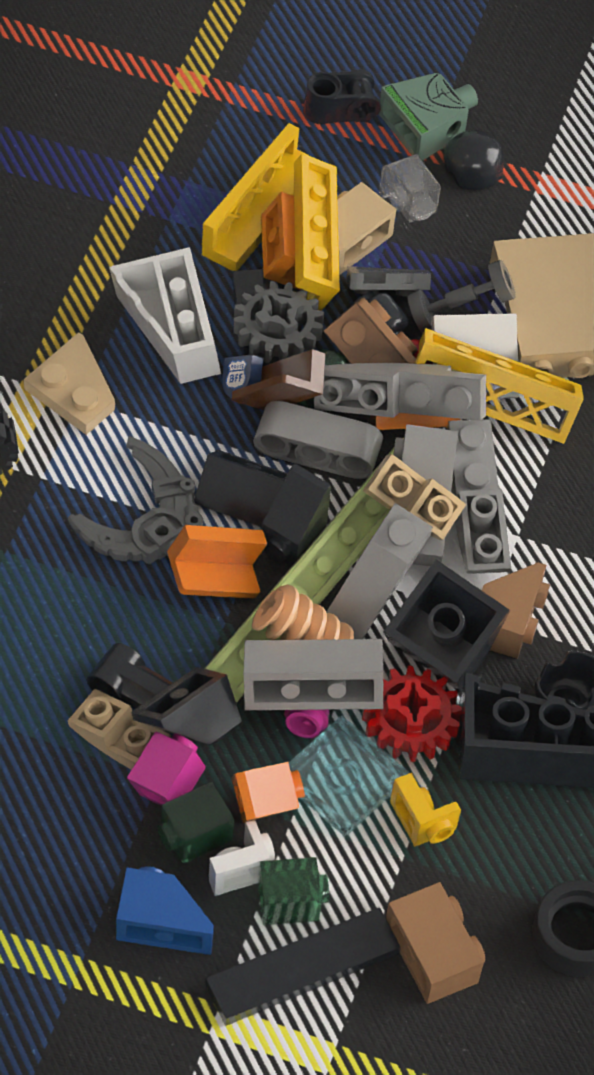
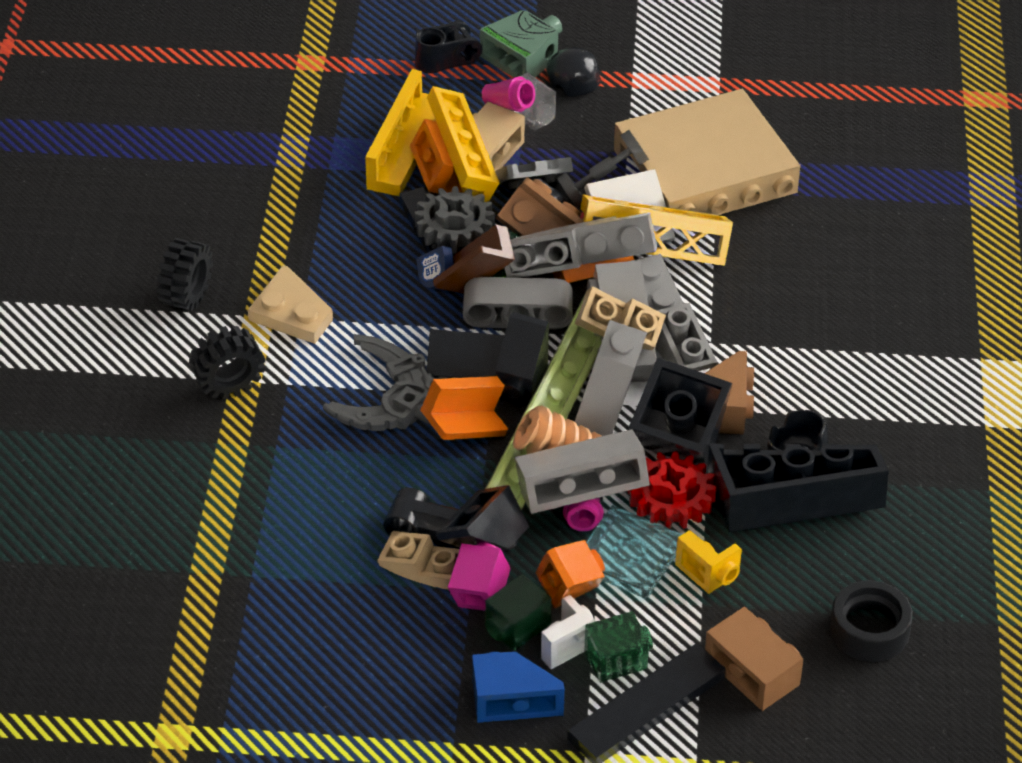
camera: 10 degrees left, 10 degrees down
(170, 311) = (358, 231): white wedge -> none
(389, 180) = (511, 94): none -> dark pink cone

